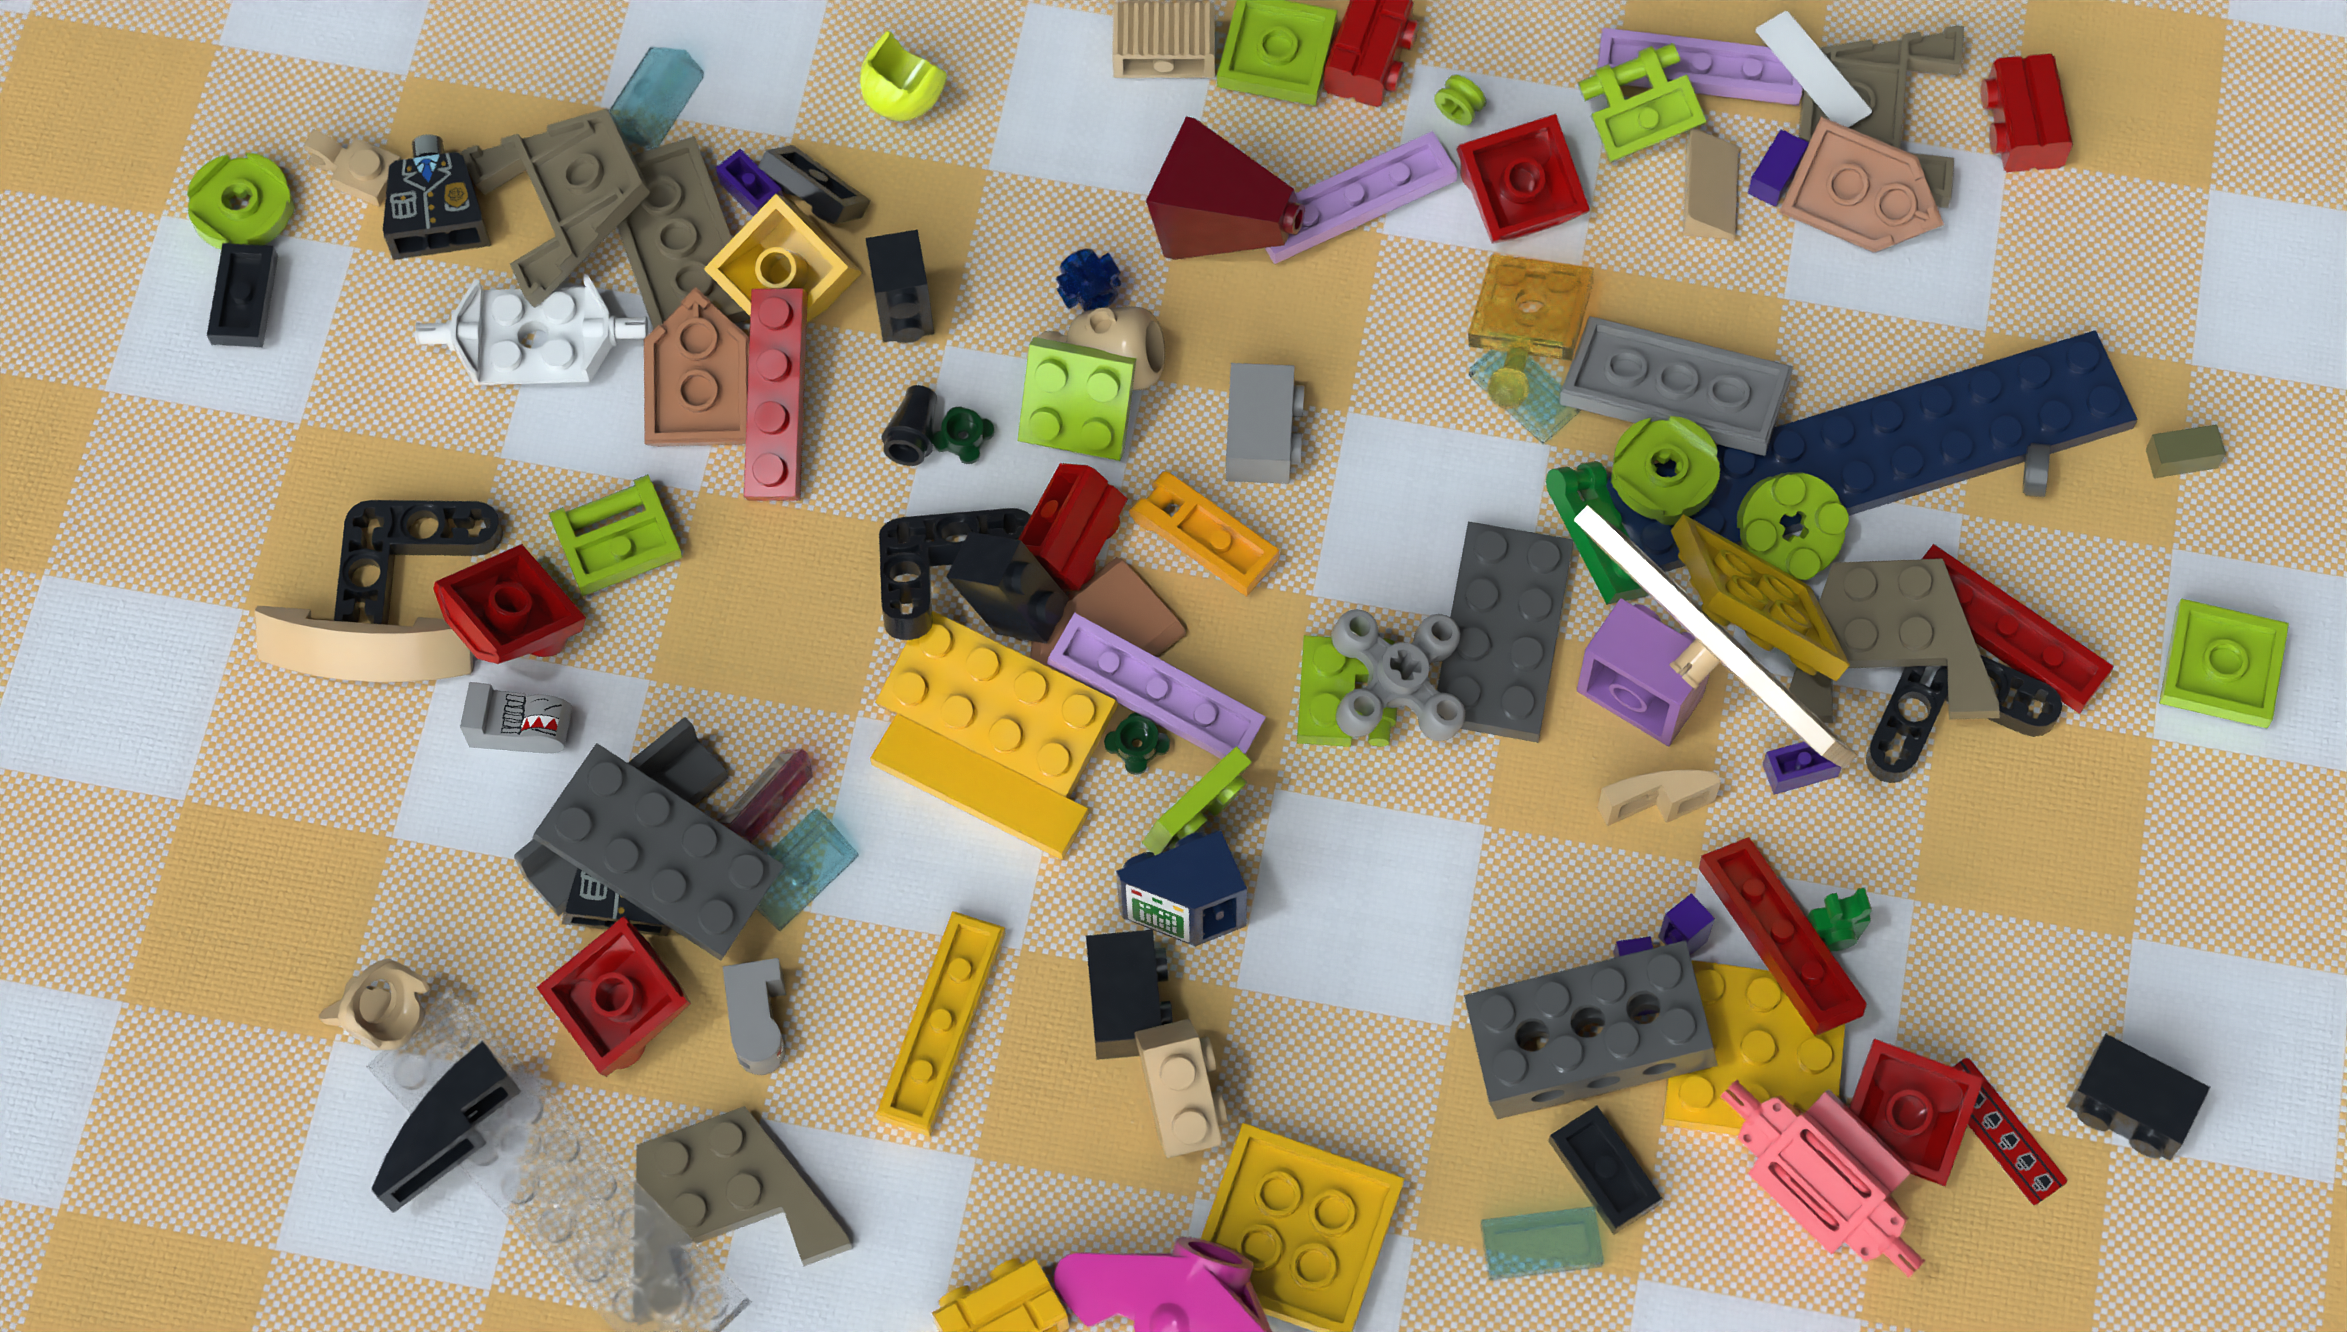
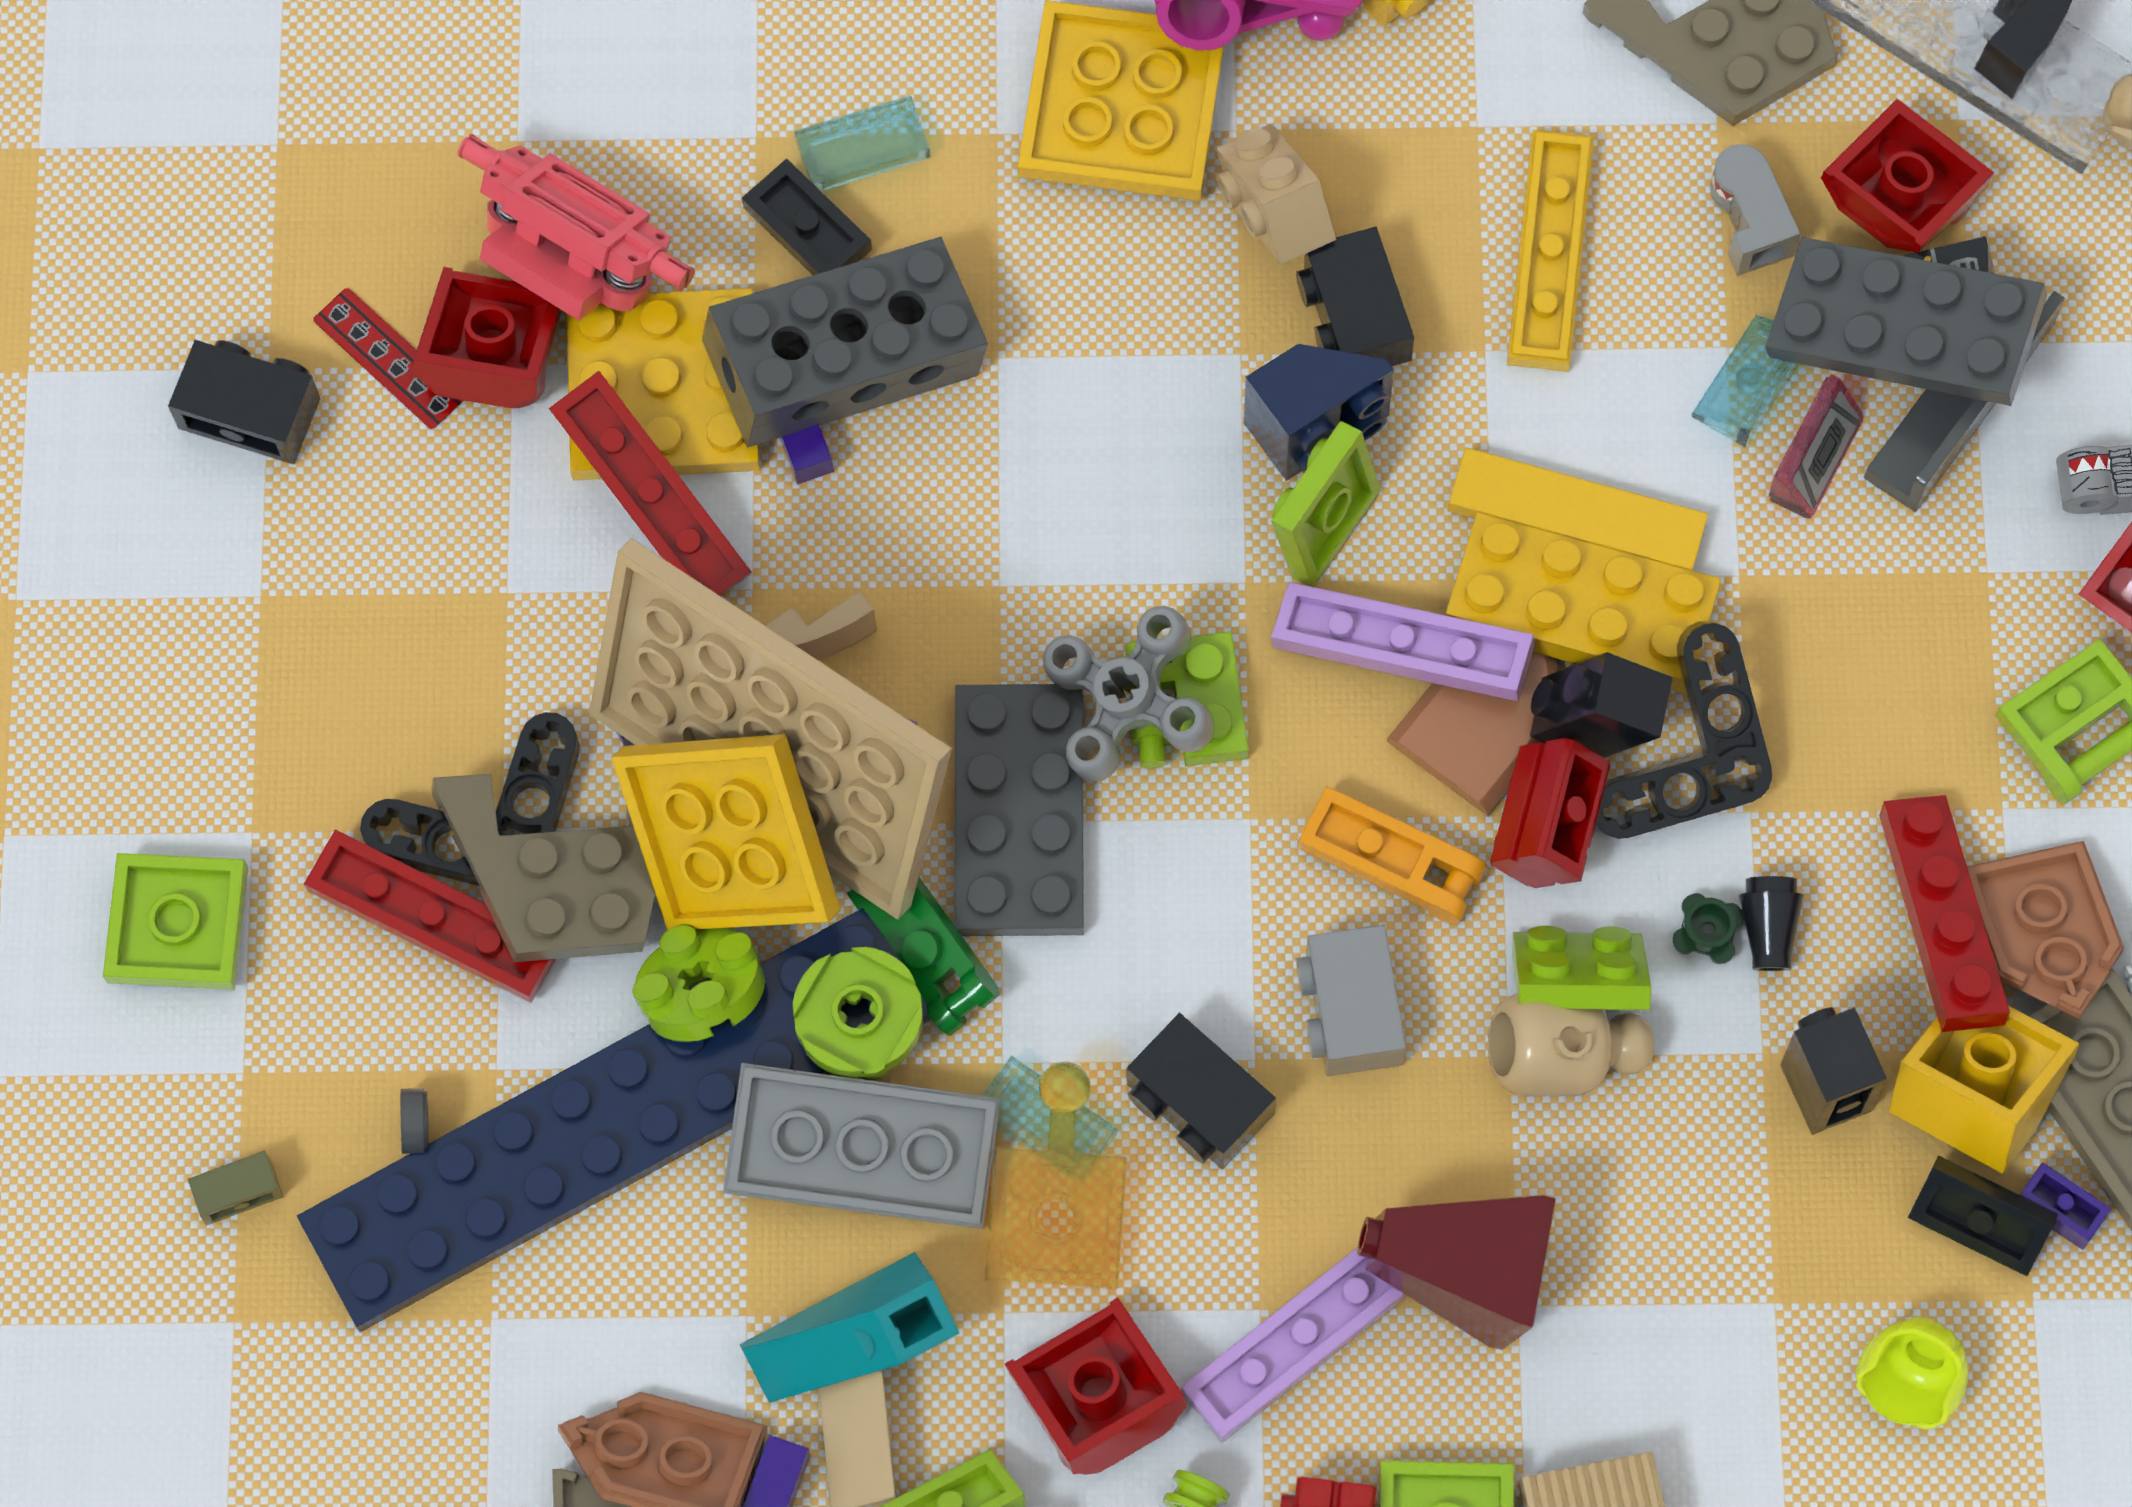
camera: 170 degrees right, 5 degrees up
(1088, 280) = (1606, 1144): clear blue gear -> none
(1134, 728) = (1411, 575): dark green plate -> none
(1399, 377) = (1199, 1093): none -> black brick
(1687, 922) = (756, 486): dark purple piece -> none
(1691, 249) = (853, 1332): none -> teal slope
(1842, 919) = (590, 520): green plate -> none

